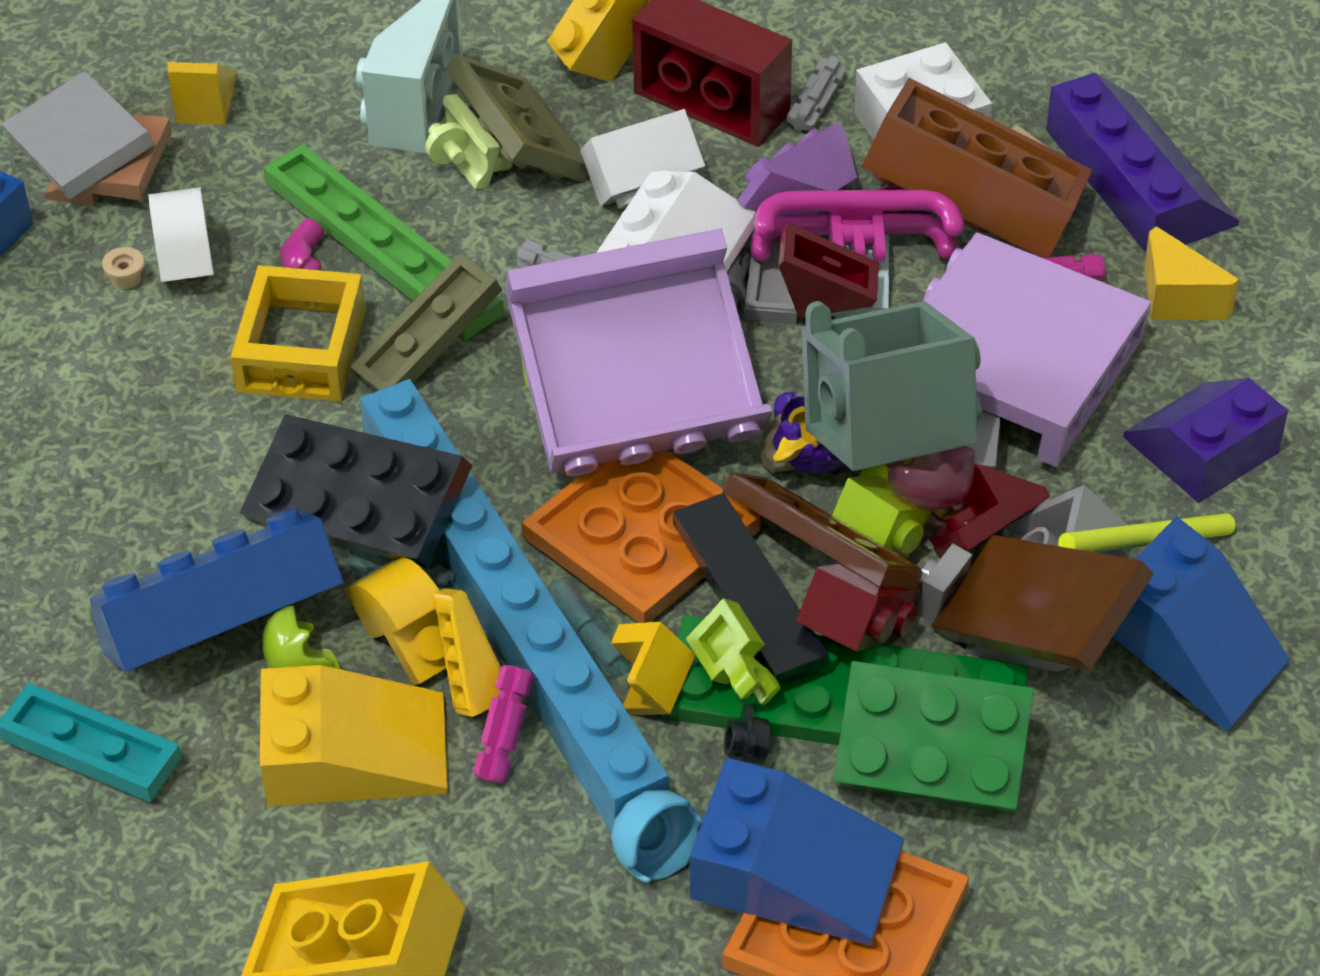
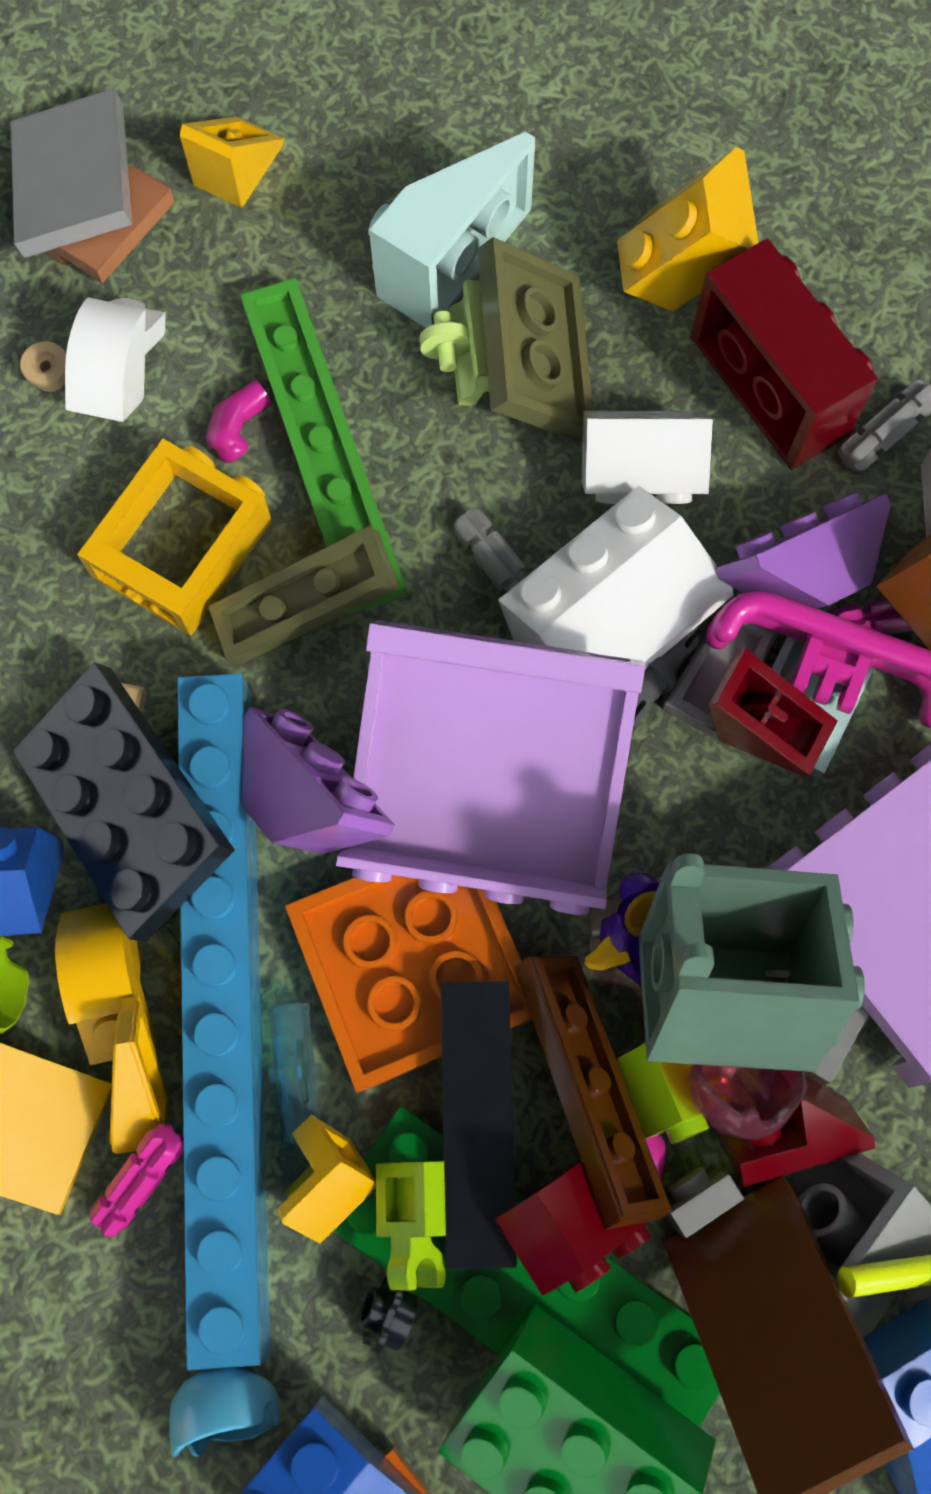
camera: 25 degrees right, 25 degrees up
(509, 422) = (301, 790): none -> medium lavender slope

